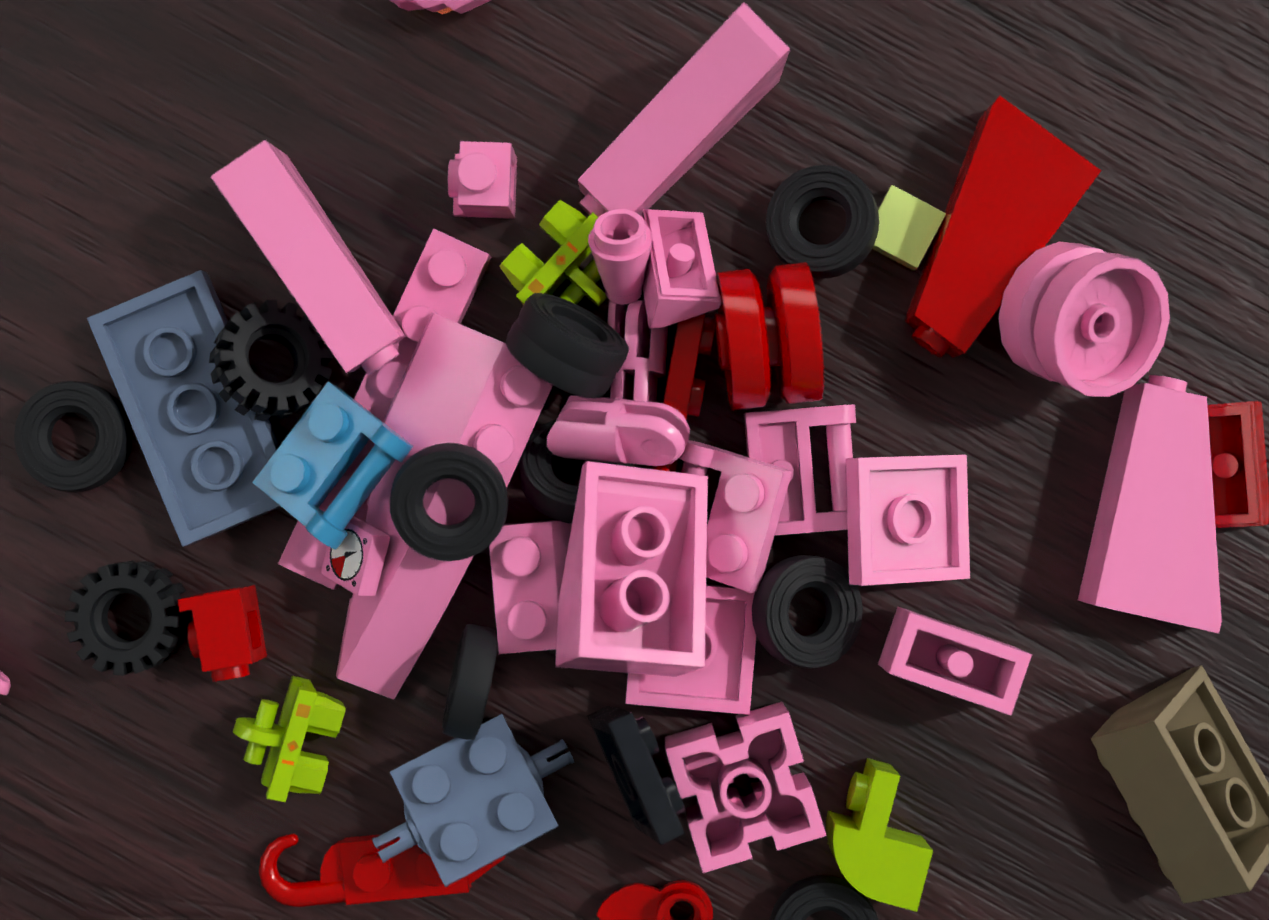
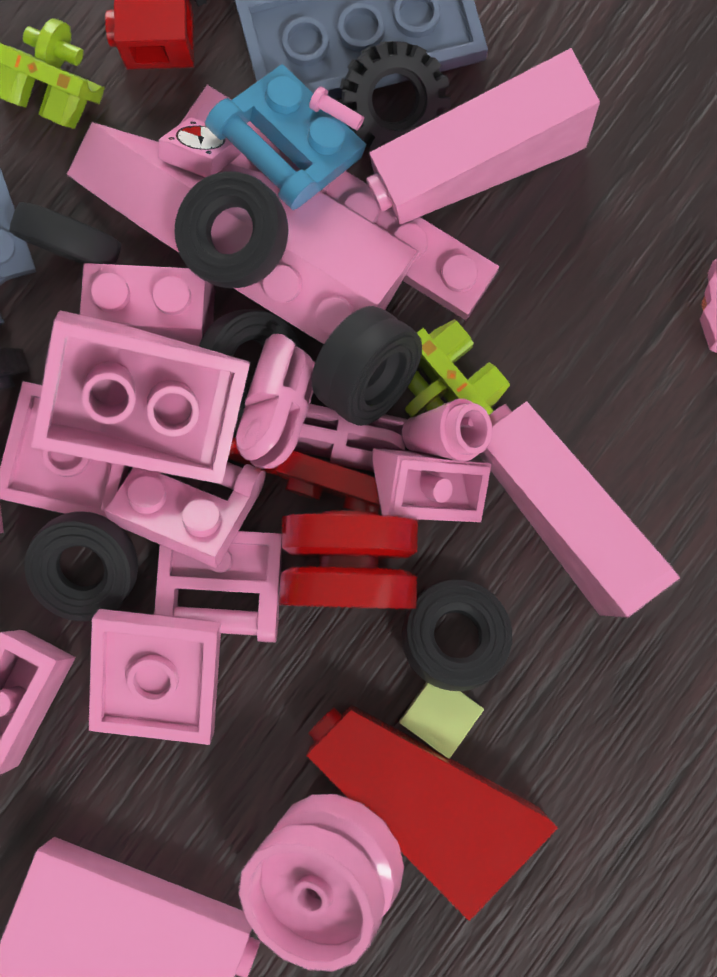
camera: 100 degrees right, 5 degrees down
(298, 417) = (322, 101): none -> bright pink piece
(483, 180) = (538, 317): bright pink brick -> none

